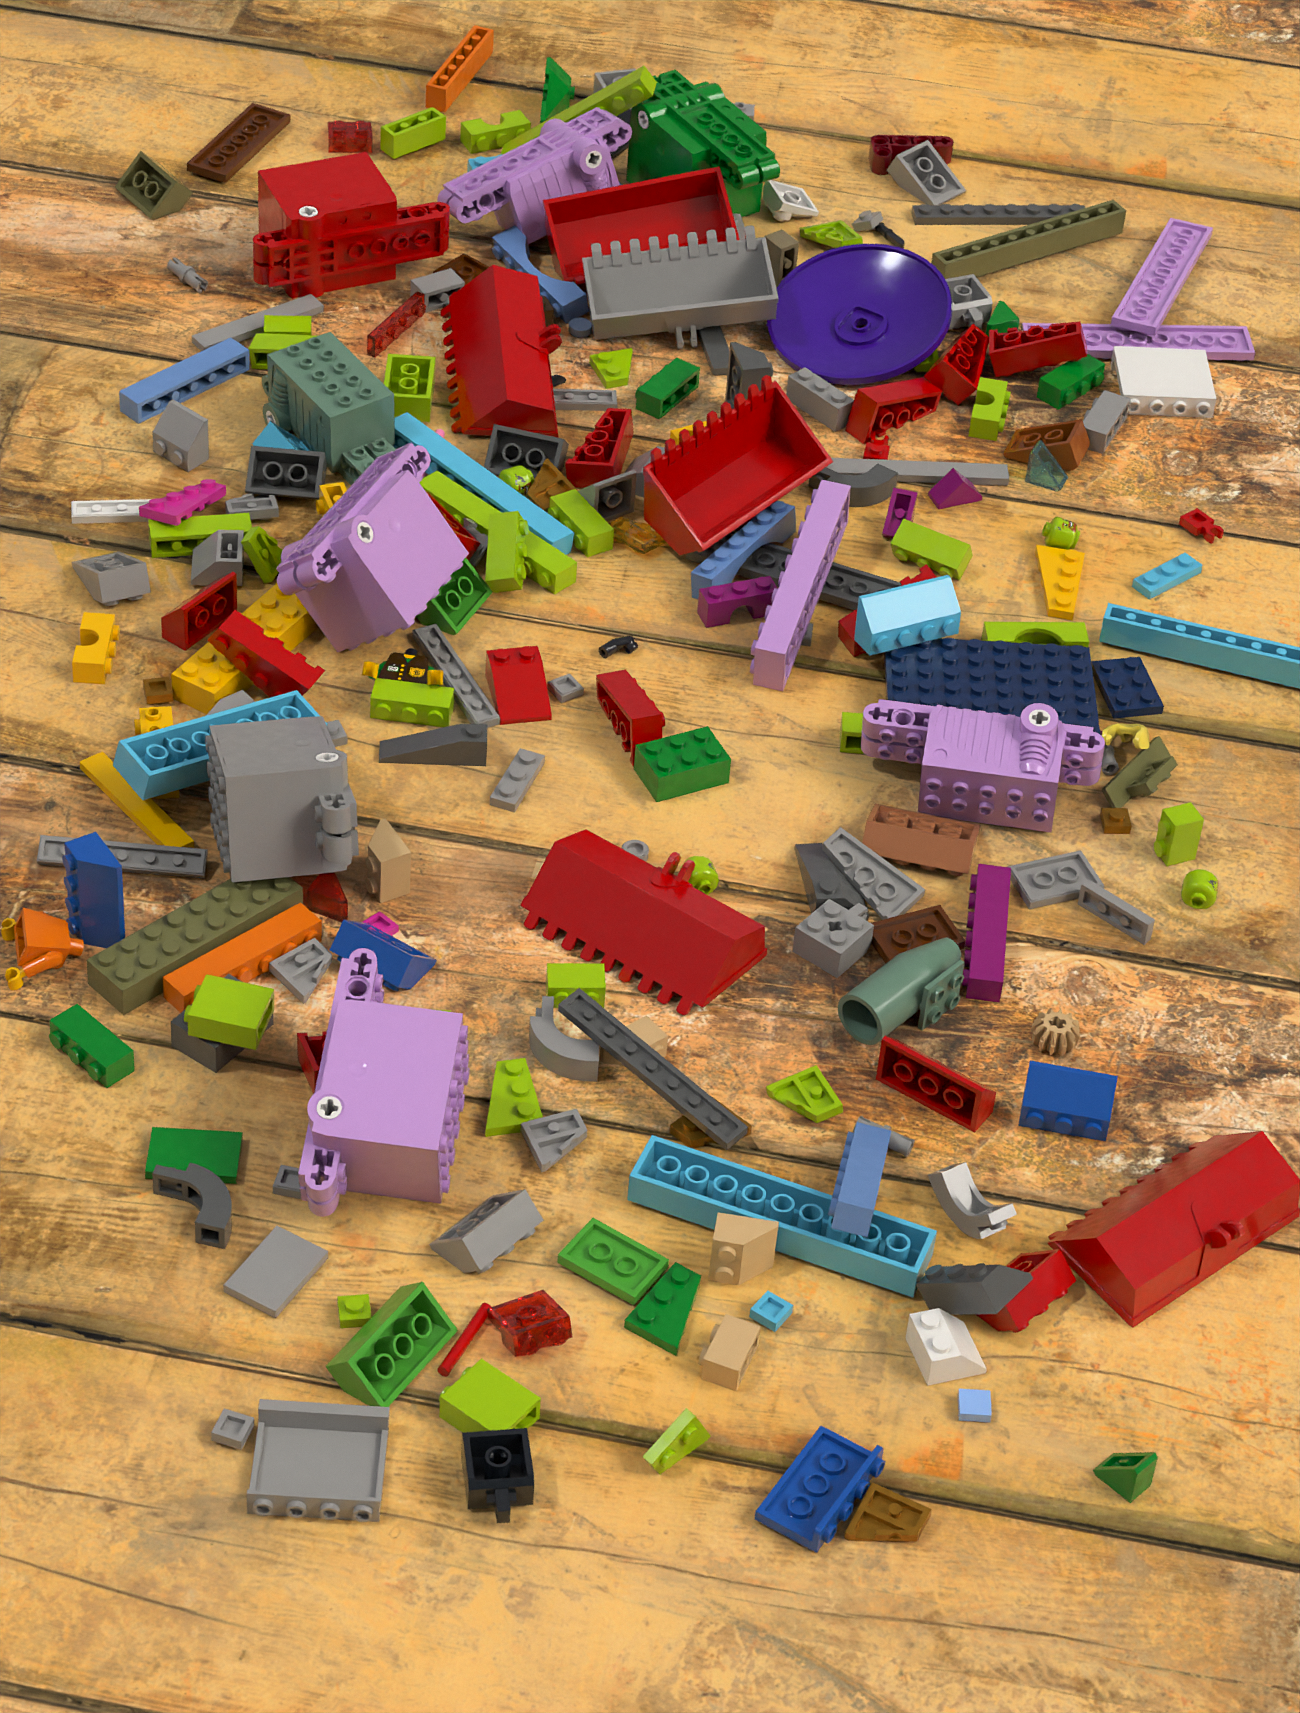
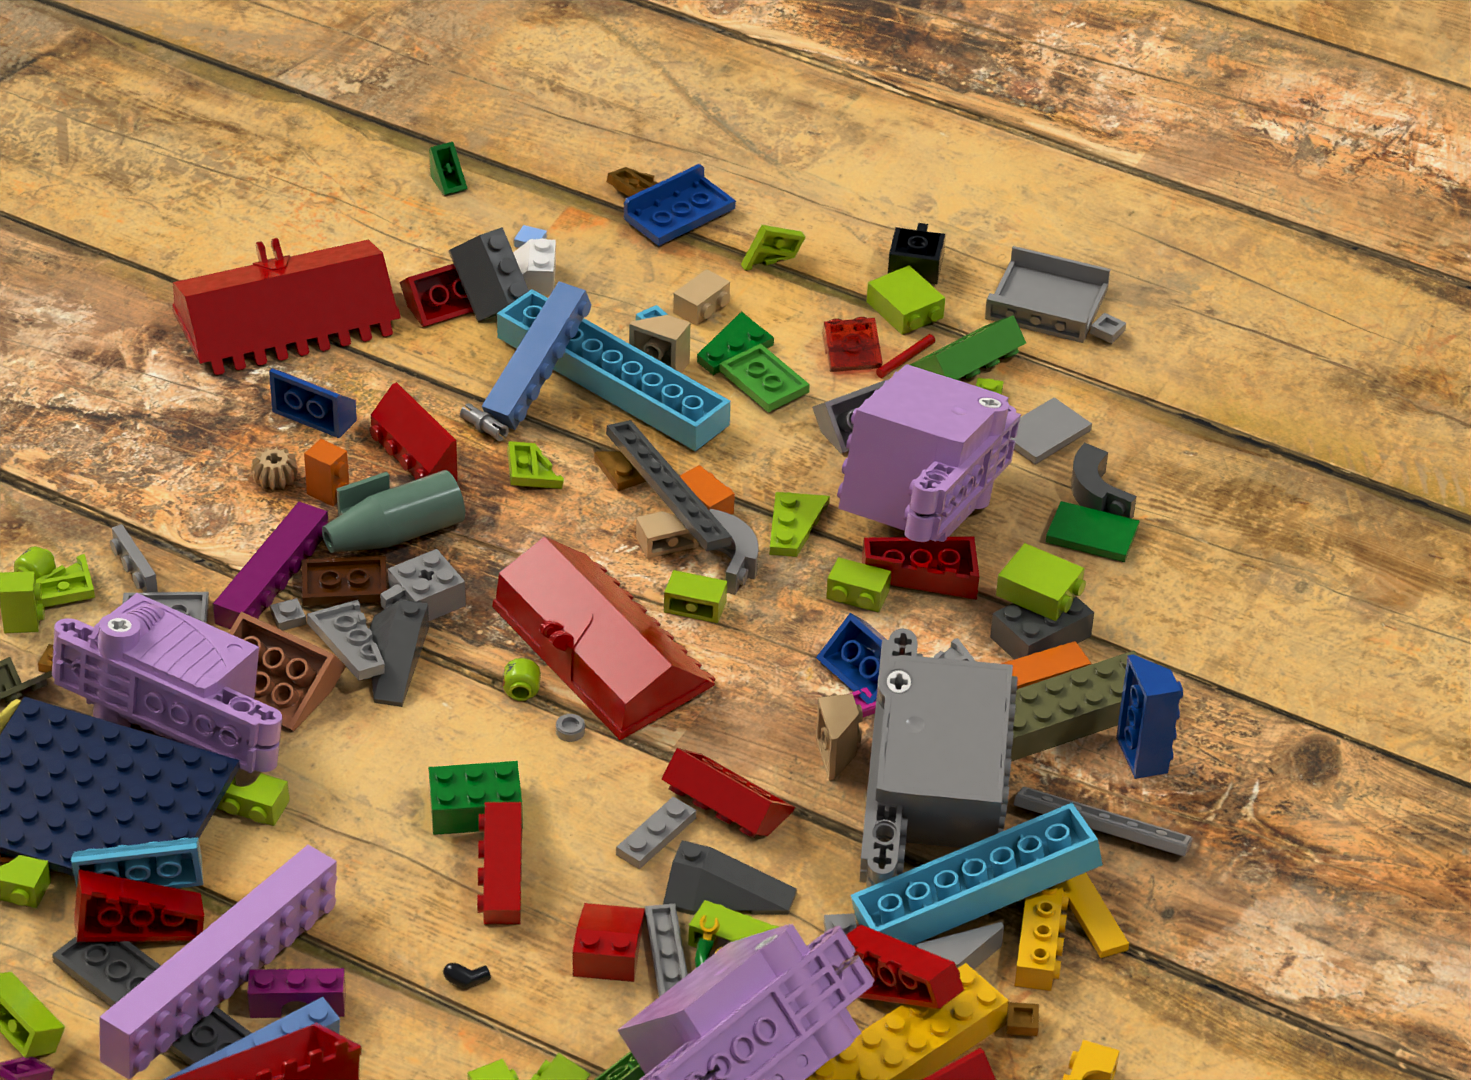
camera: 160 degrees left, 0 degrees up
(40, 944) = (1204, 734): orange torso -> none
(91, 1045) = (1168, 632): green brick -> none
(287, 1182) = (1012, 495): light grey tile -> none
(467, 814) = (726, 793): none -> red slope
(553, 1136) = (771, 478): light grey wing -> none
(565, 688) = (552, 936): light grey tile -> none
(614, 1095) = (709, 490): none -> orange brick
(948, 899) = (288, 614): none -> light grey plate
(965, 1203) = (445, 340): light grey arch -> none
(996, 1017) = (326, 471): none -> orange brick
(1159, 881) = (67, 584): none -> lime wing

